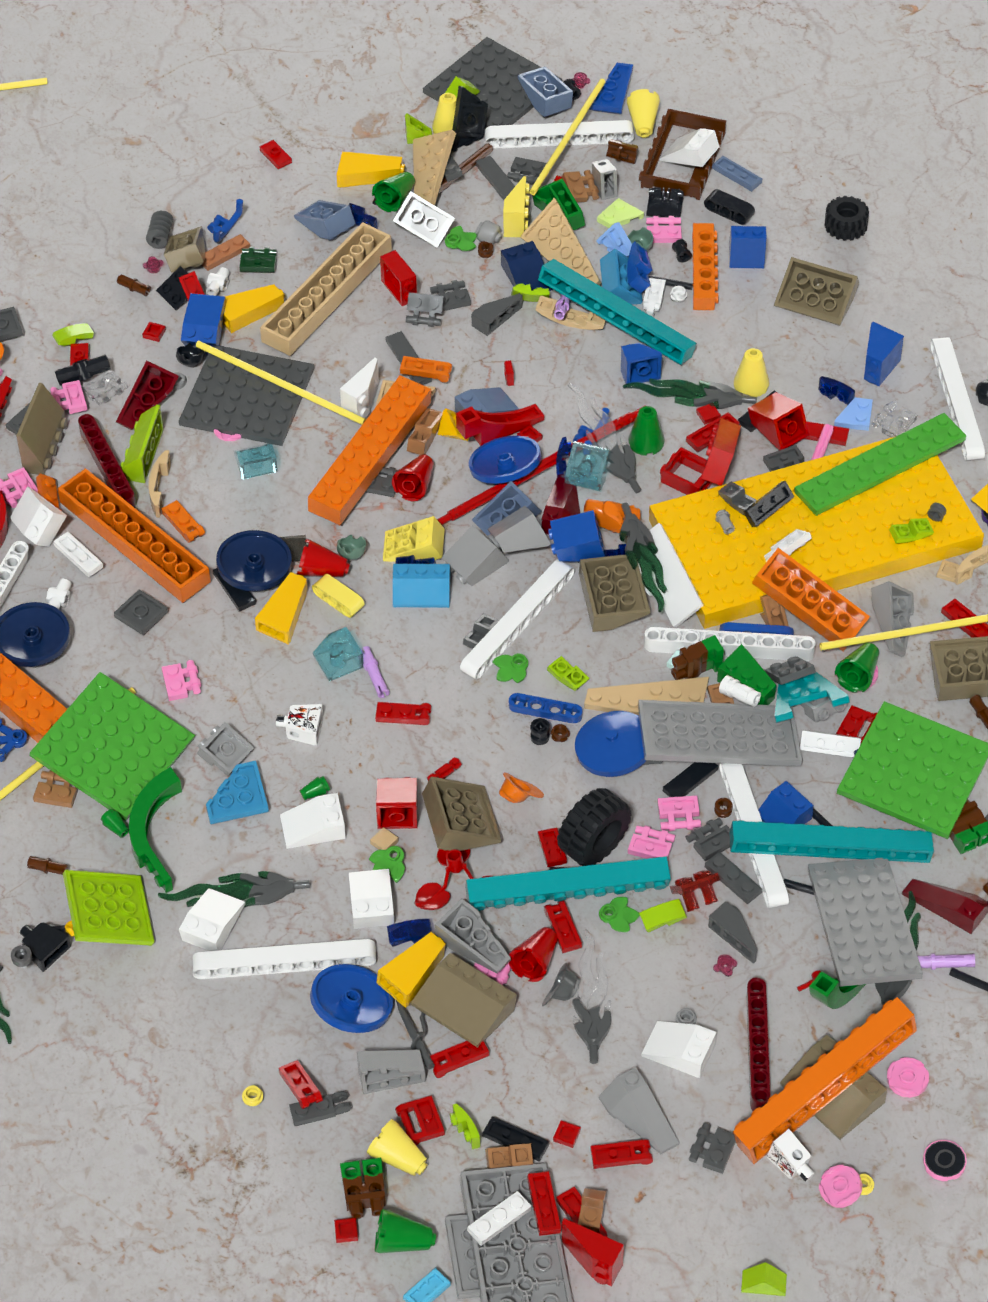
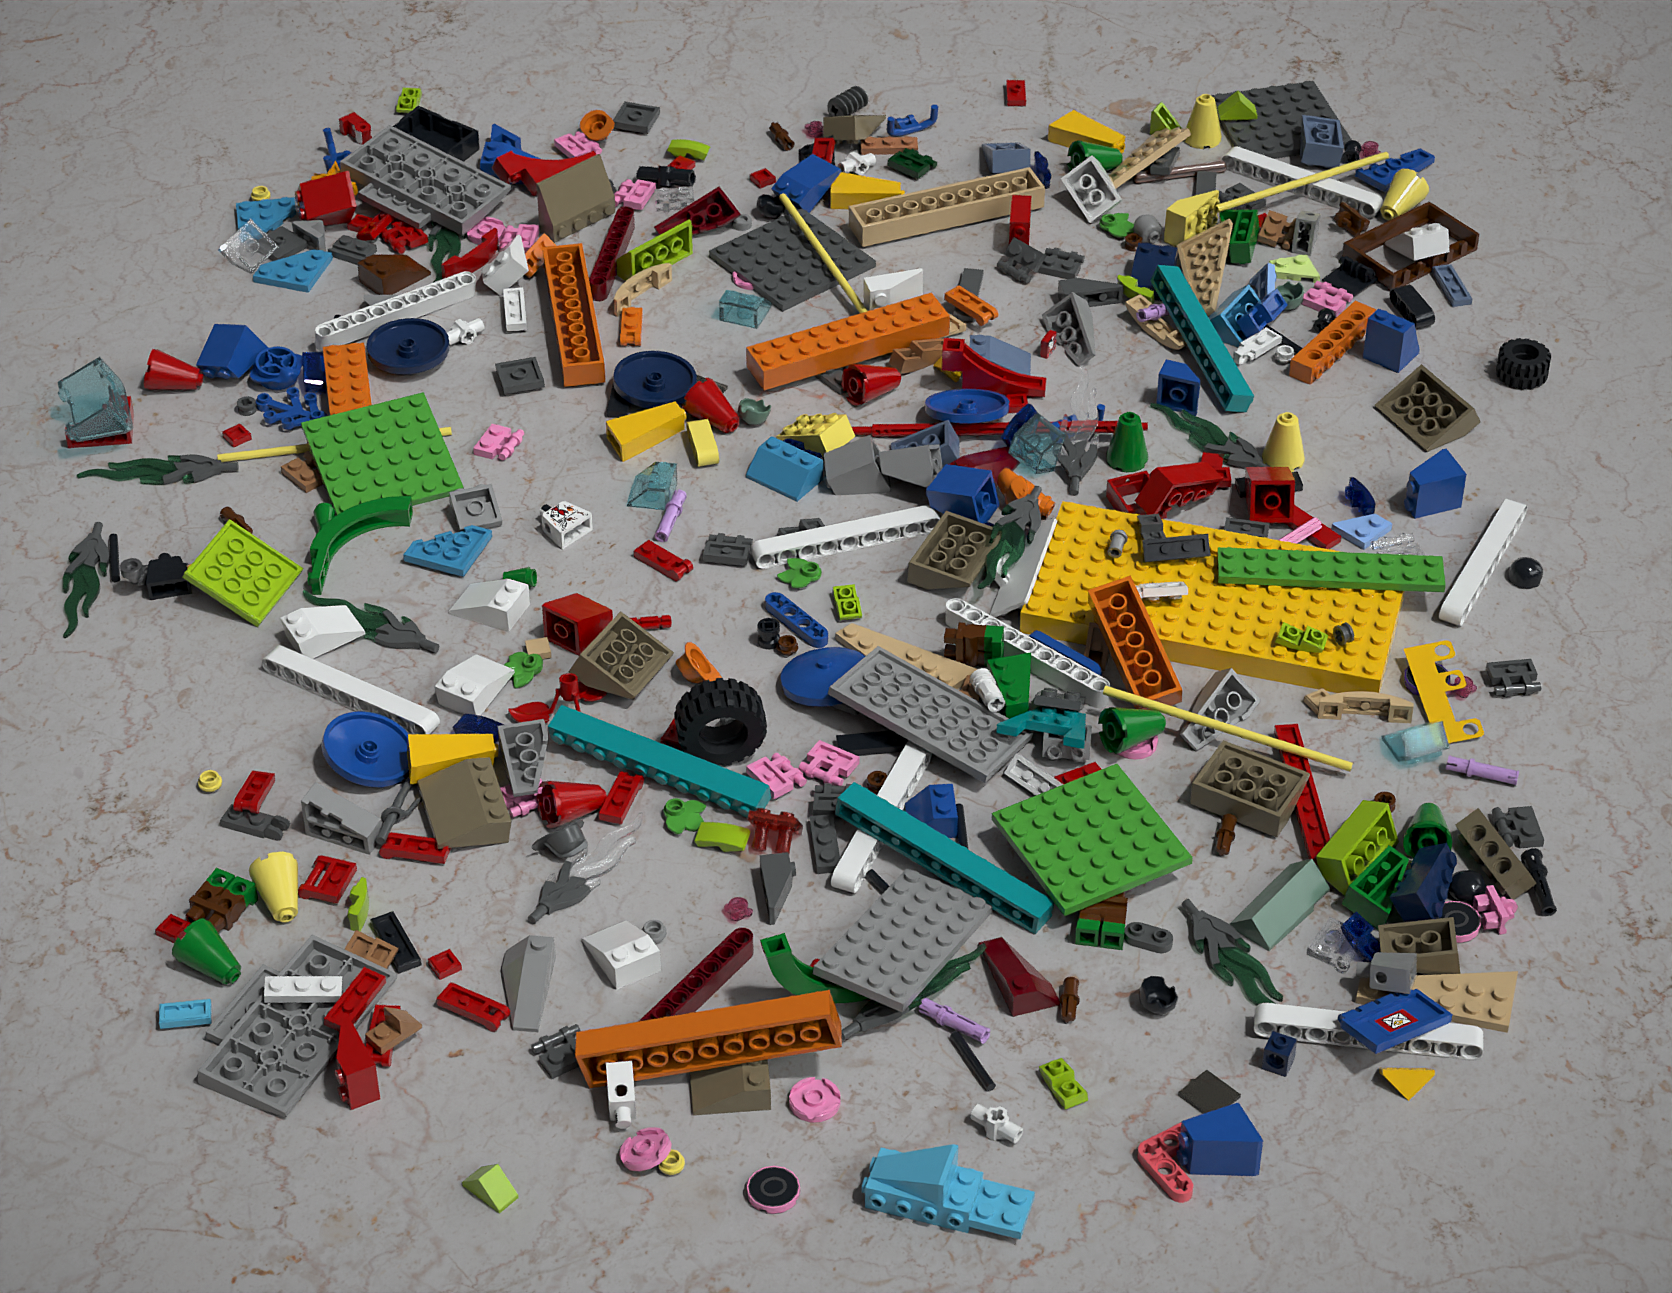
camera: 35 degrees right, 10 degrees down
(442, 681) = (727, 549): none -> dark grey plate
(468, 118) = (1218, 129): black wing -> none
(508, 344) = (1074, 327): none -> light grey wedge

